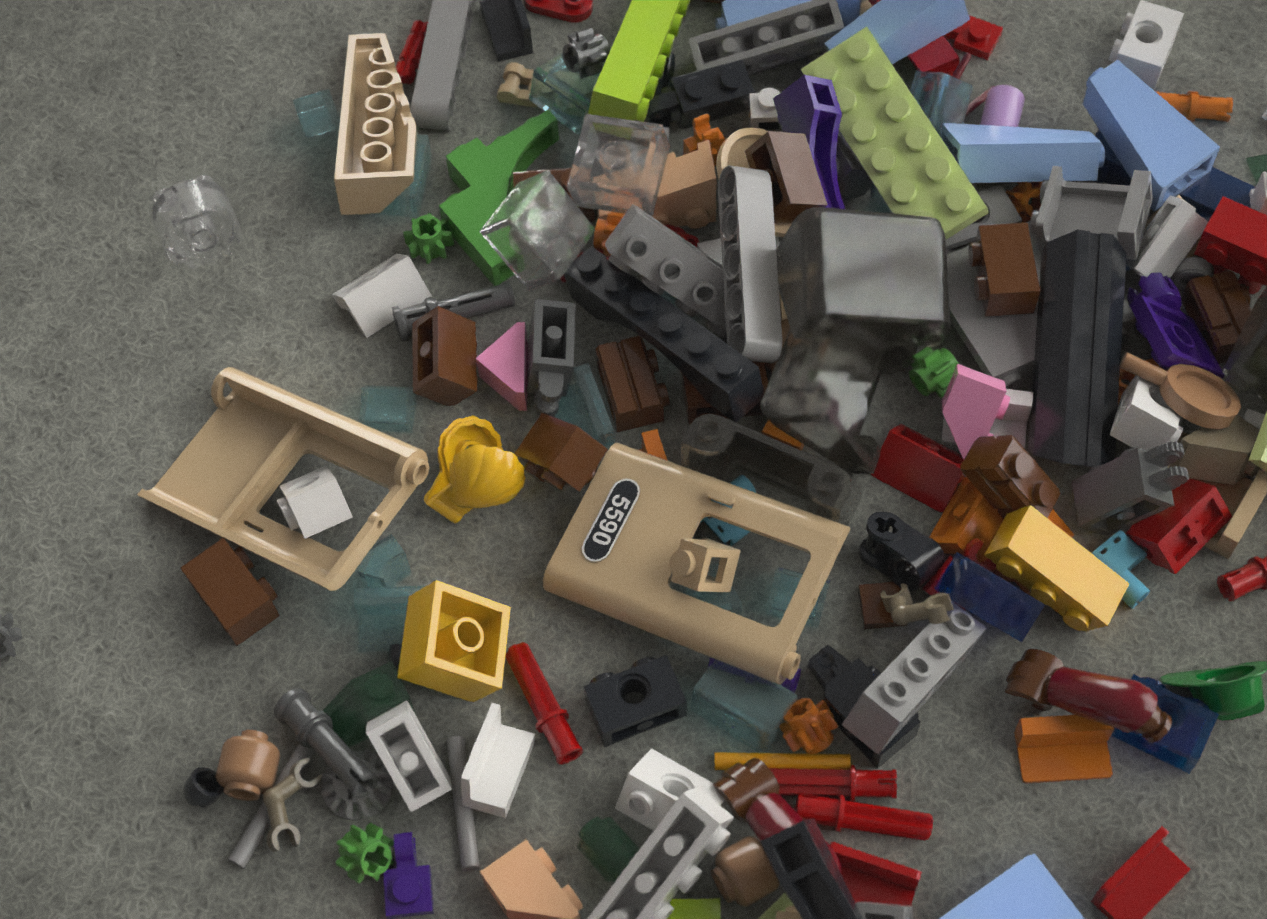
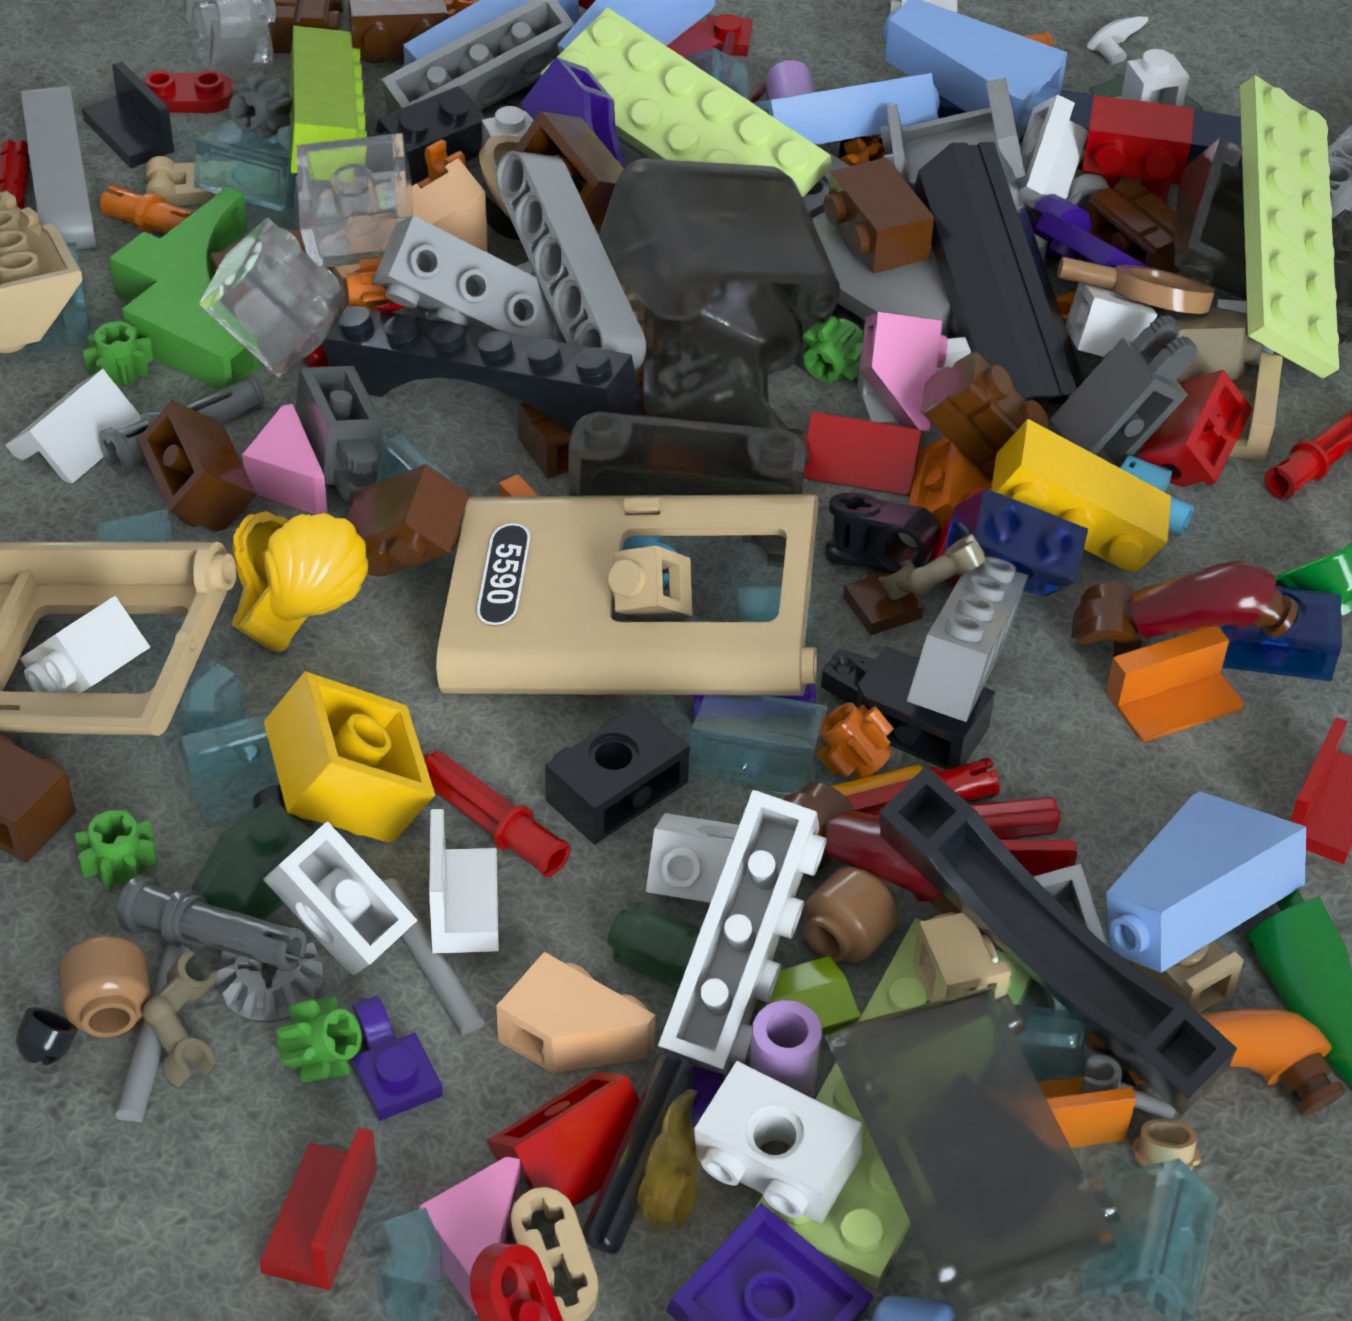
camera: 25 degrees left, 15 degrees down
(292, 668) = (115, 847): none -> bright green gear
(492, 110) = (145, 211): none -> orange pin
(630, 383) = (459, 440): reddish brown brick -> none

